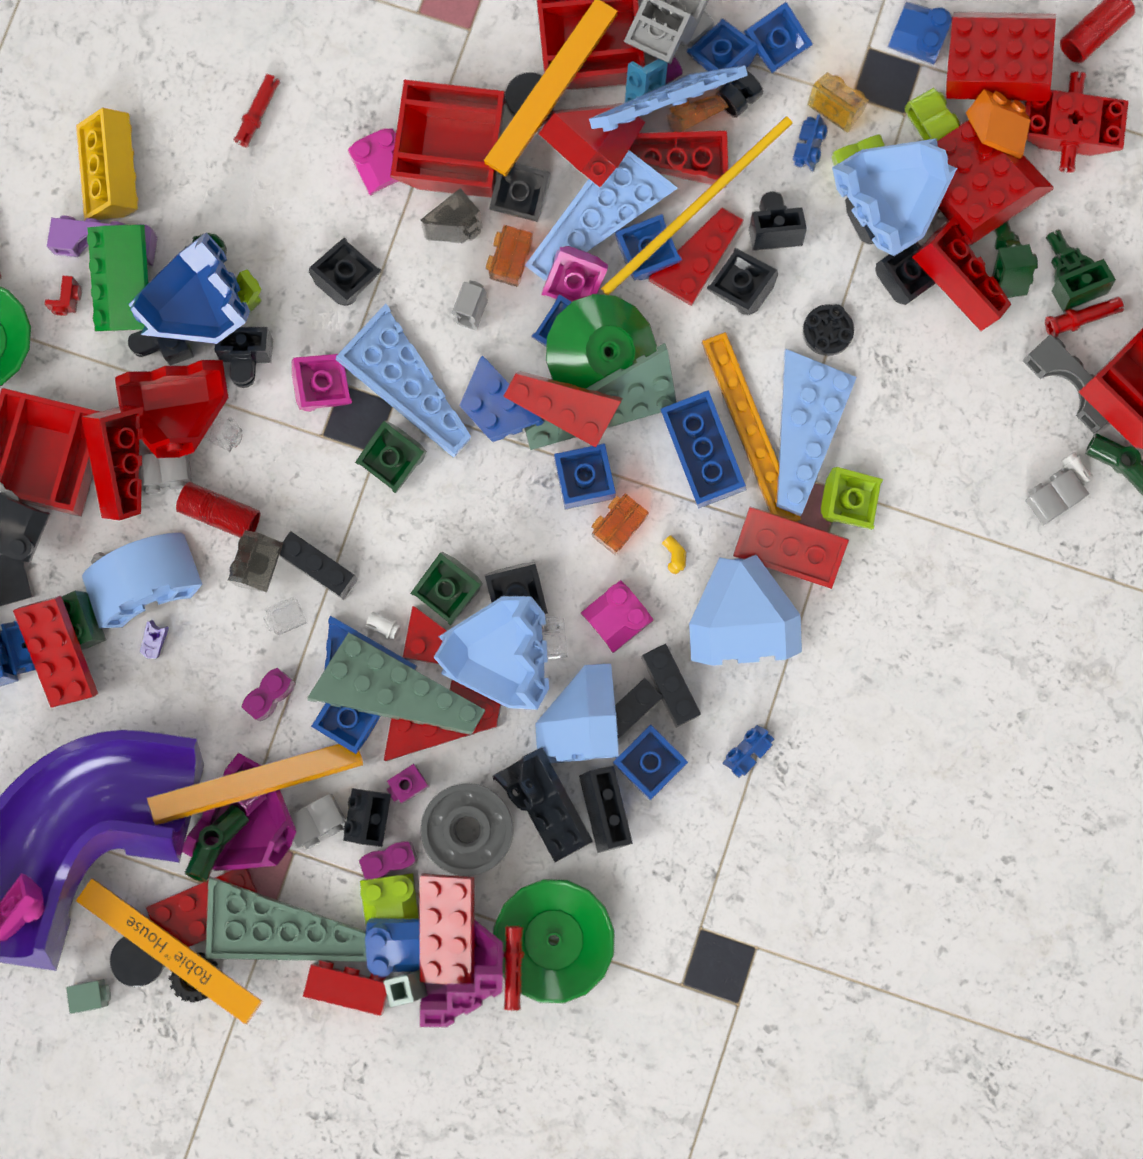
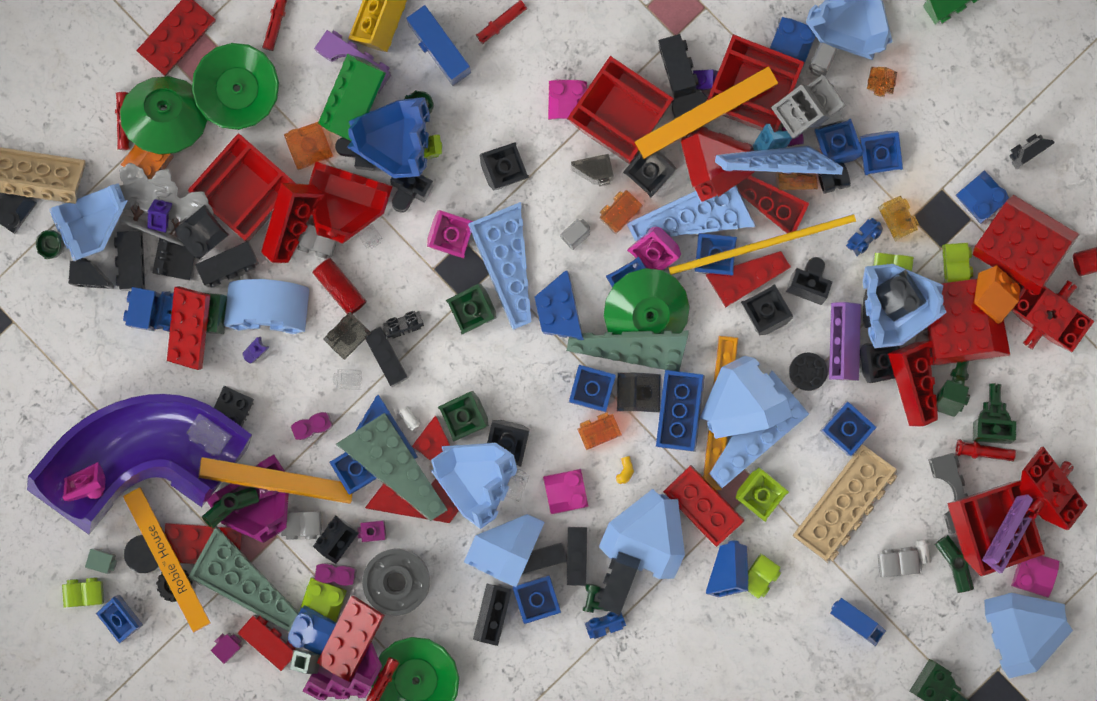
camera: 30 degrees right, 5 degrees up
(68, 554) = (227, 265): none -> black brick
(70, 293) = (313, 88): red bracket -> none
(84, 1049) = (83, 593): none -> lime brick
(97, 365) = (308, 145): none -> clear orange slope
(142, 766) = (209, 435): none -> clear bracket
(146, 1056) = (119, 618): none -> blue slope
(161, 716) = (234, 405): none -> black hinge
(194, 169) = (438, 45): none -> blue brick
(298, 1021) = (226, 647): none -> magenta brick
(325, 505) = (411, 320): none -> black hinge
(489, 55) = (678, 65): none -> black brick
(528, 57) = (705, 78): none -> dark purple bracket
(546, 803) = (455, 589): black plate -> none
(569, 407) = (601, 338): wedge -> none
(641, 454) = (638, 392): none -> clear smoke slope
(718, 736) = (590, 603): none -> dark green piece
(738, 690) = (618, 582): none -> black brick
(773, 396) = (744, 400): none -> light blue panel
(853, 270) = (845, 341): none -> medium lavender brick
(863, 608) = (729, 570): none -> blue slope
(891, 180) = (899, 296): none -> black slope
(902, 596) = (761, 574): none -> lime brick
(912, 369) = (848, 428): none -> blue brick
(956, 459) = (845, 504): none -> tan bracket
(1047, 589) = (857, 621): none -> blue slope

